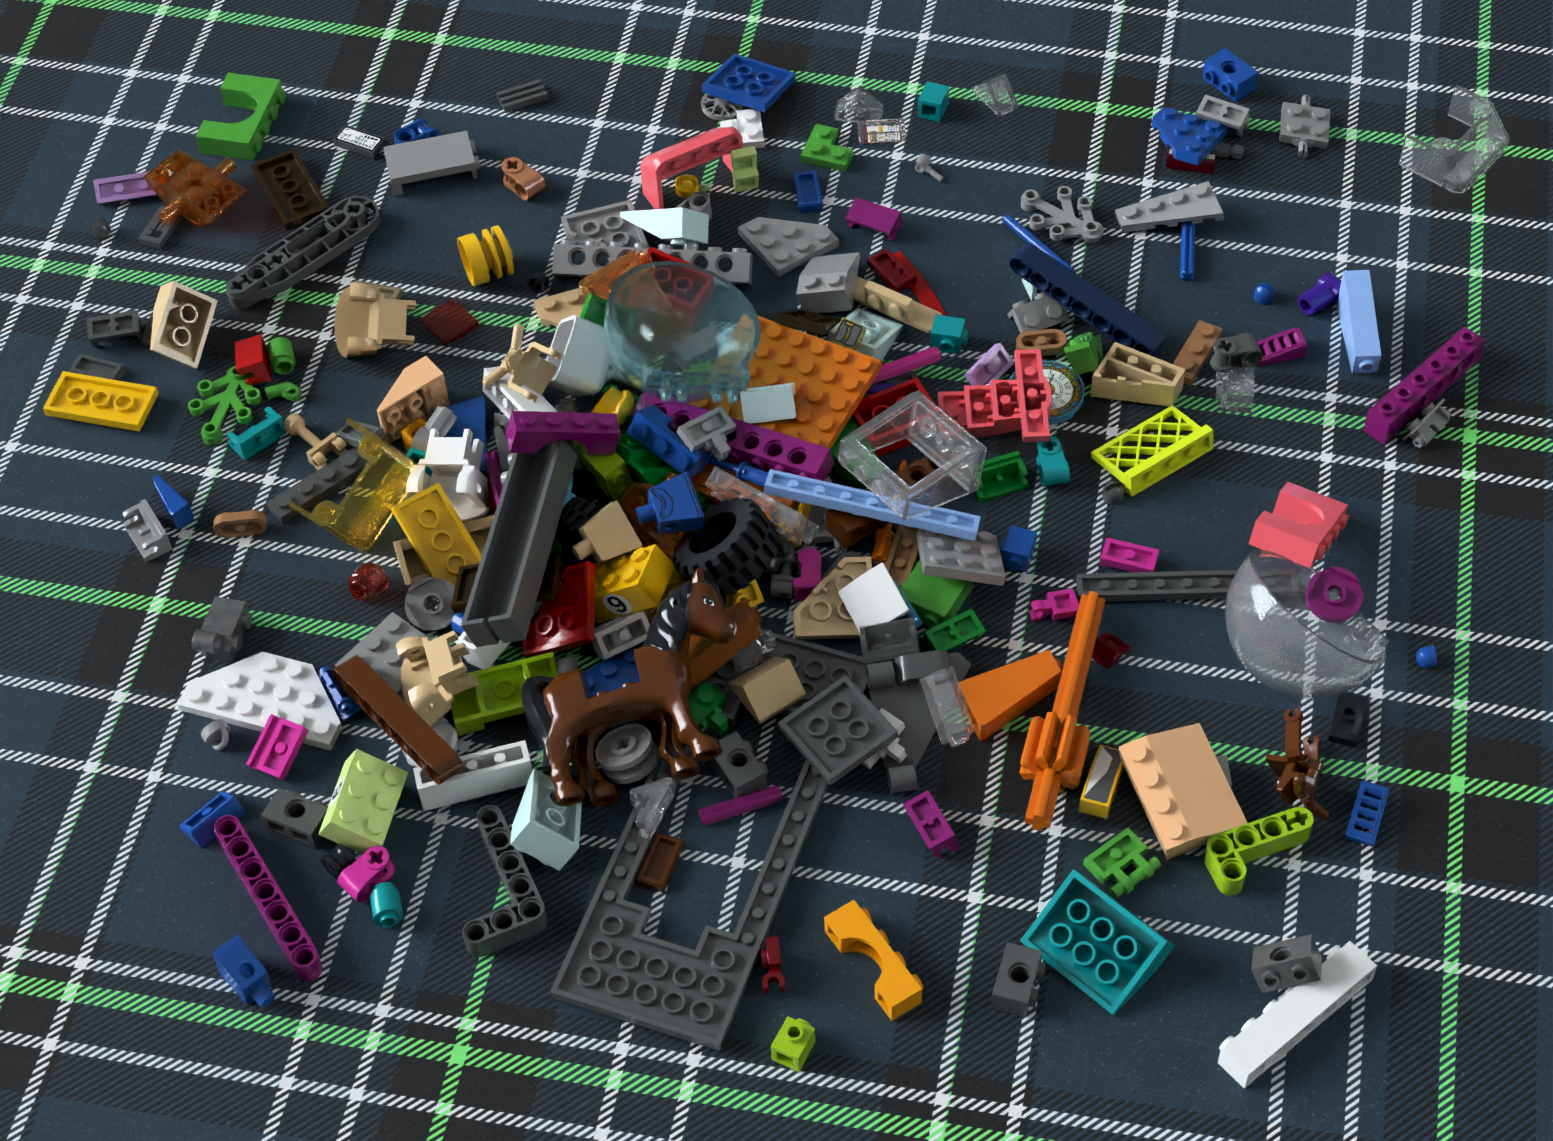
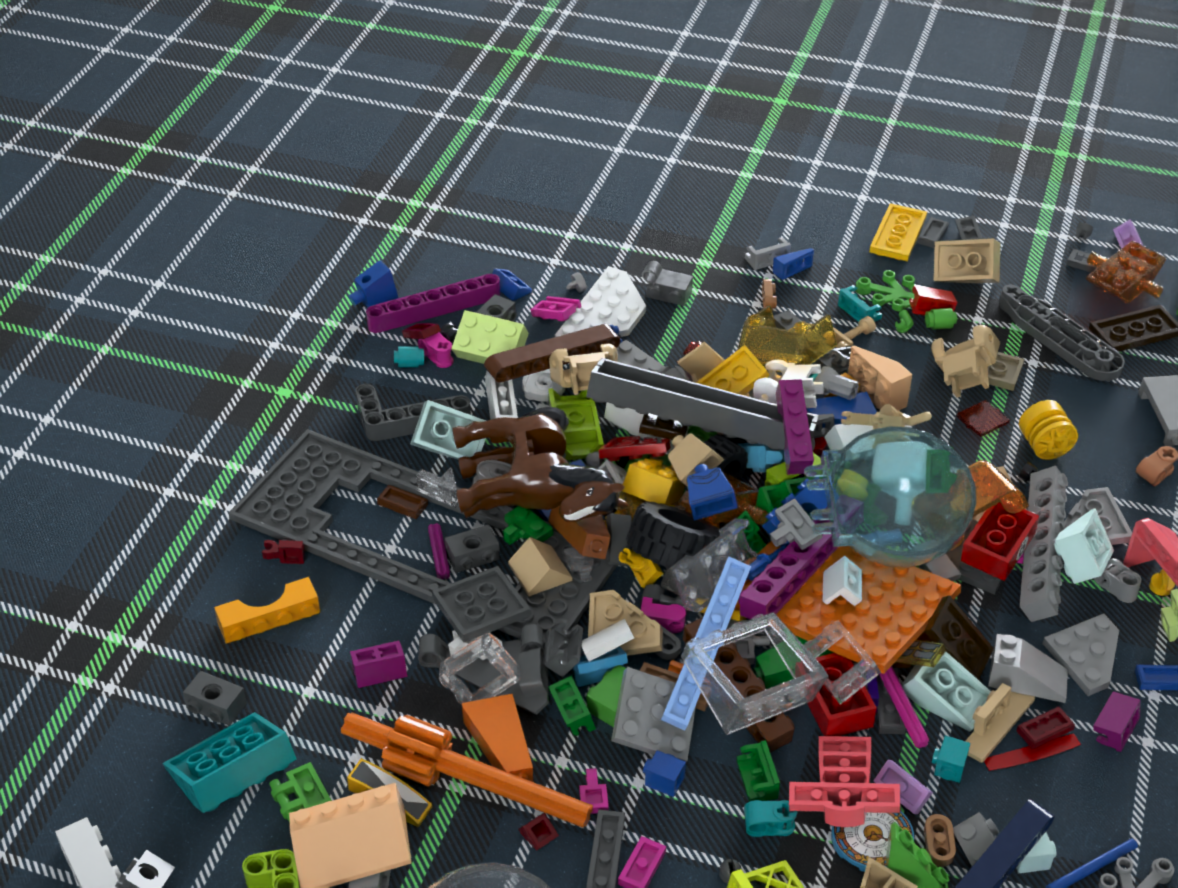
camera: 95 degrees right, 10 degrees down
(337, 896) = (421, 330): none -> dark red tile
(793, 1043) = (214, 555): lime brick -> none
(897, 372) = (854, 678): none -> clear window

